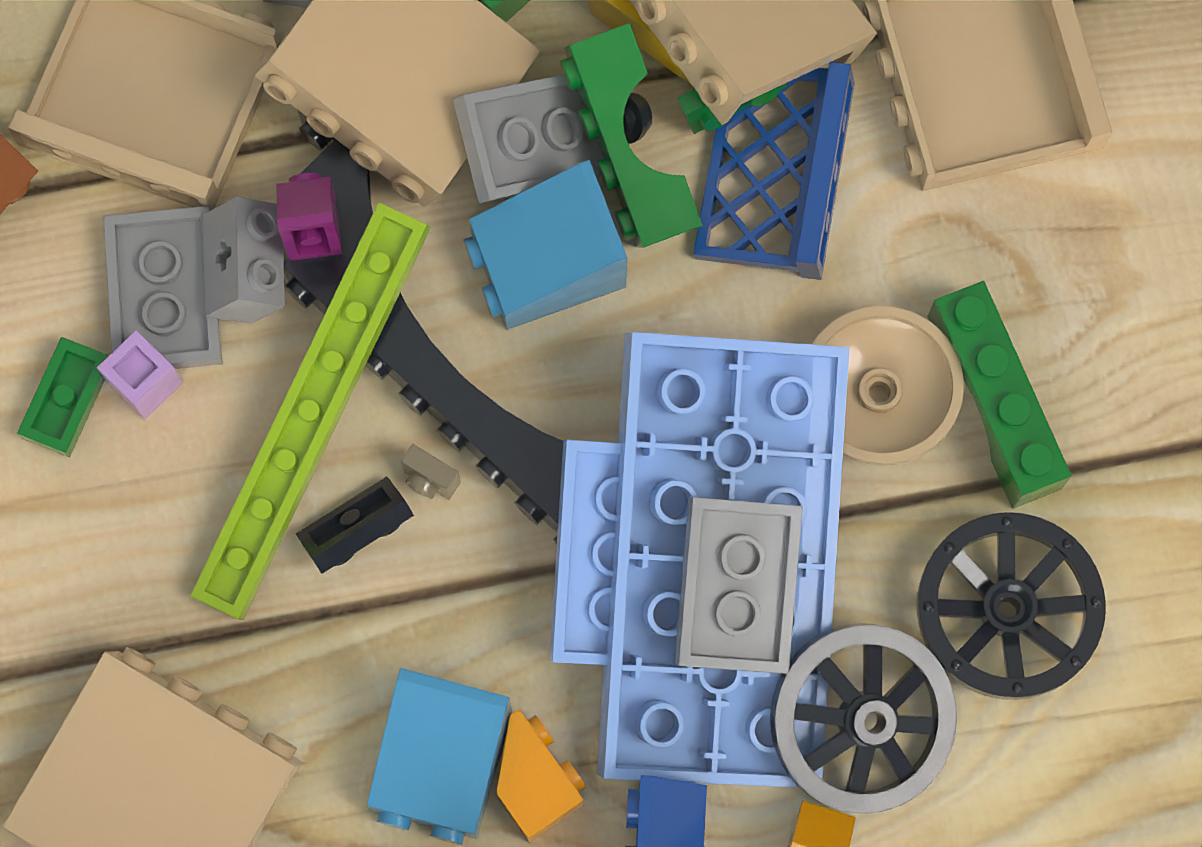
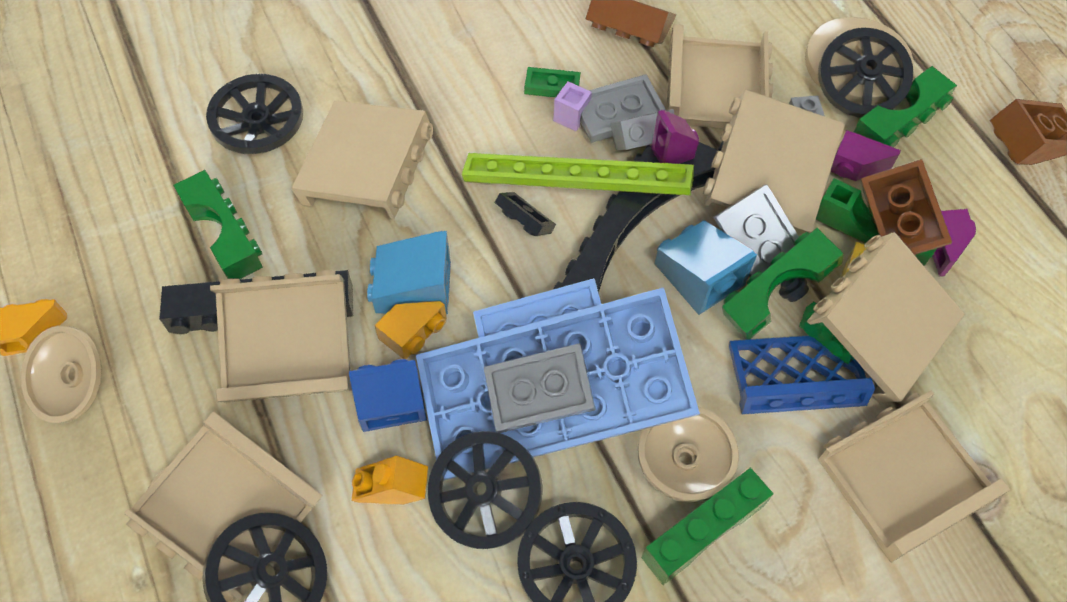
camera: 75 degrees right, 15 degrees down
(429, 474) = (562, 239): dark tan plate -> none

